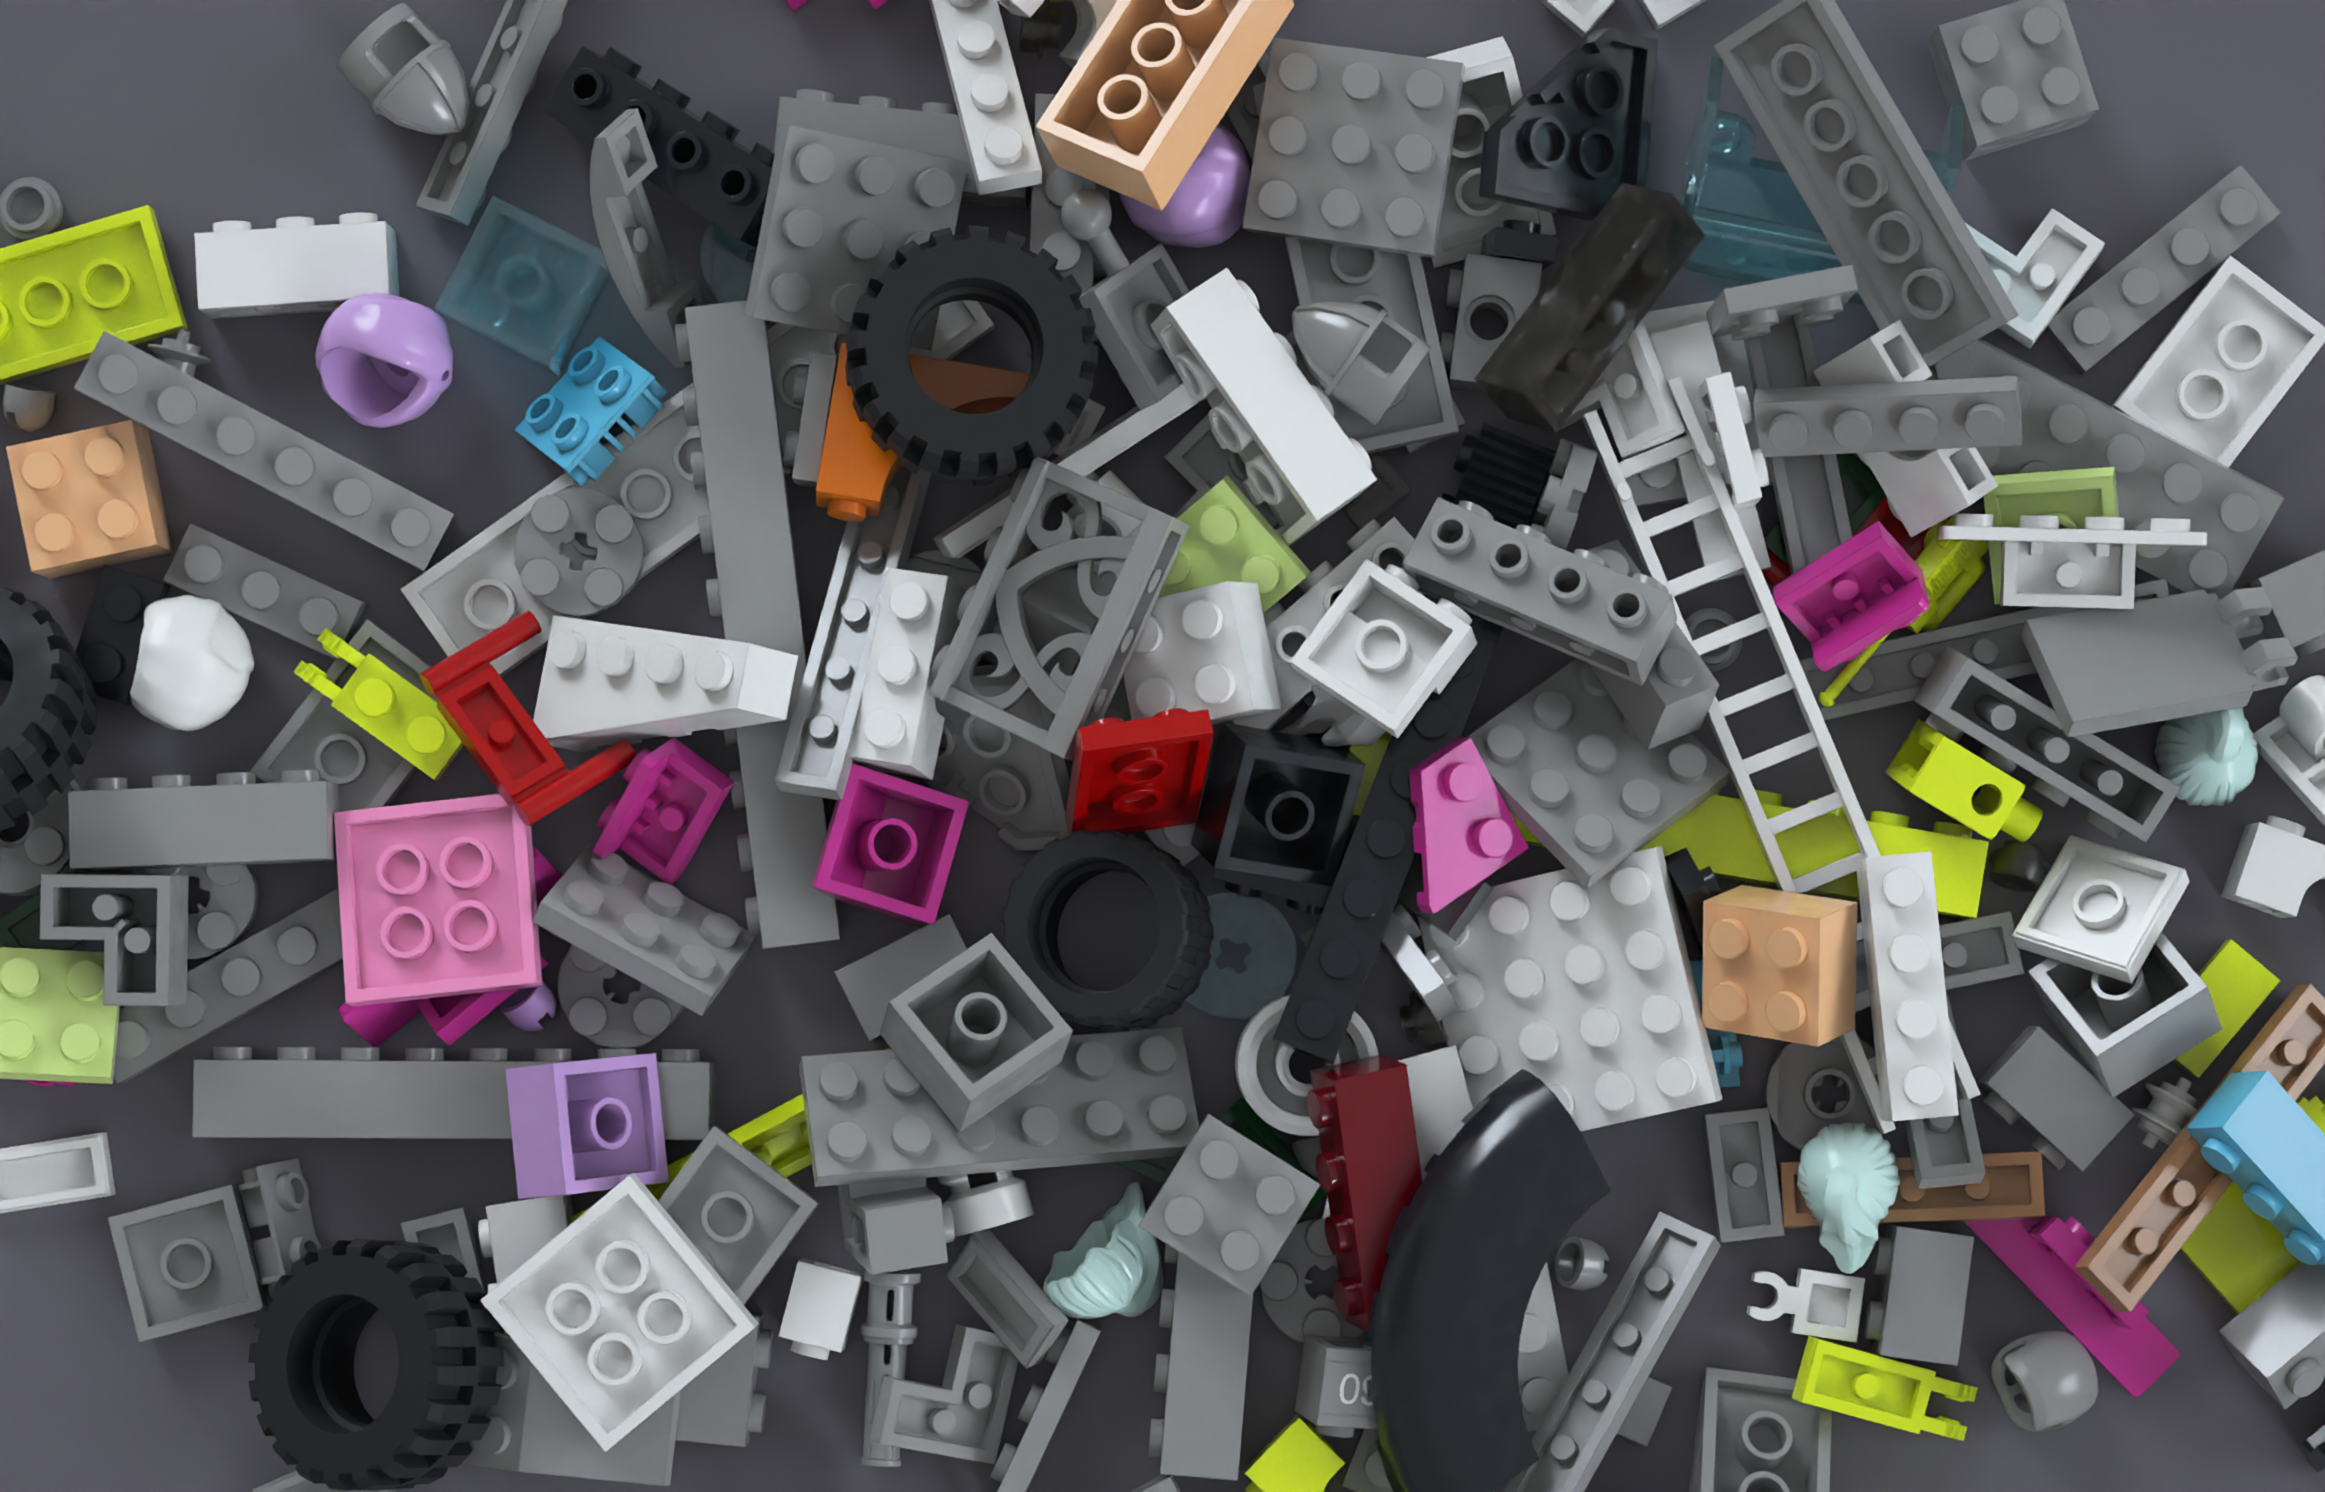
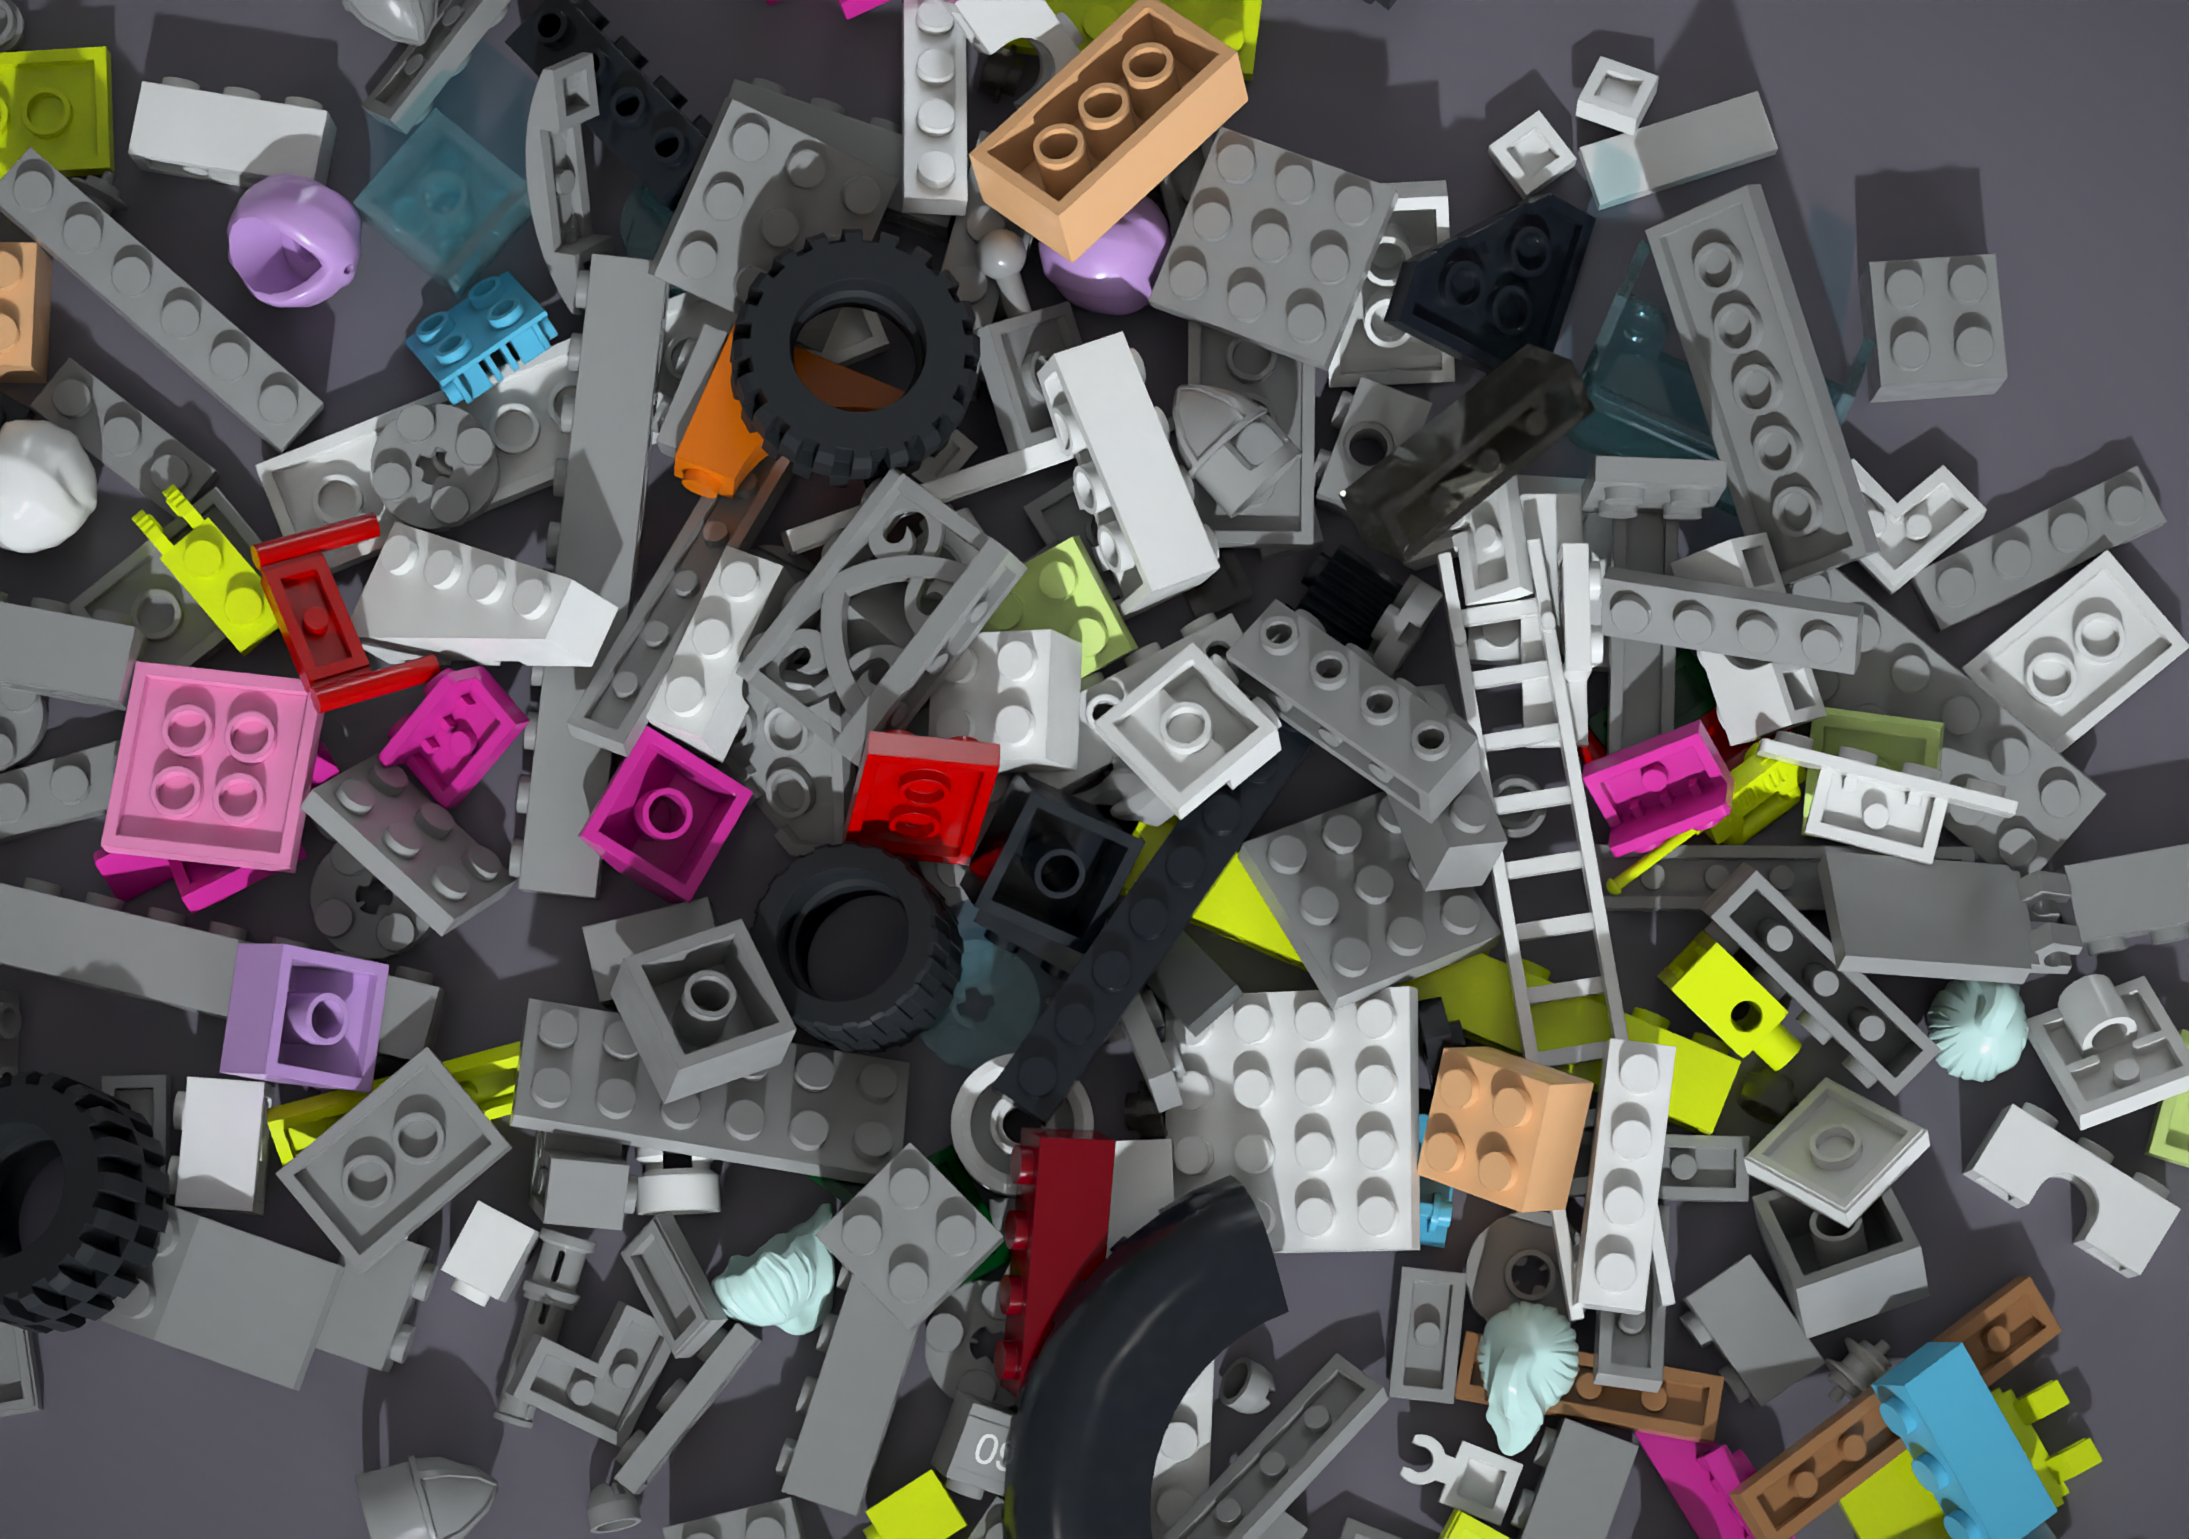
camera: 10 degrees right, 5 degrees down
(528, 1006) = (278, 894): lavender hinge -> none
(619, 1311) = (289, 1203): white plate -> none
(1459, 824) = (1224, 920): wing -> none
(1520, 242) = (1418, 378): black plate -> none
(2237, 989) = (1953, 1266): neon yellow tile -> none

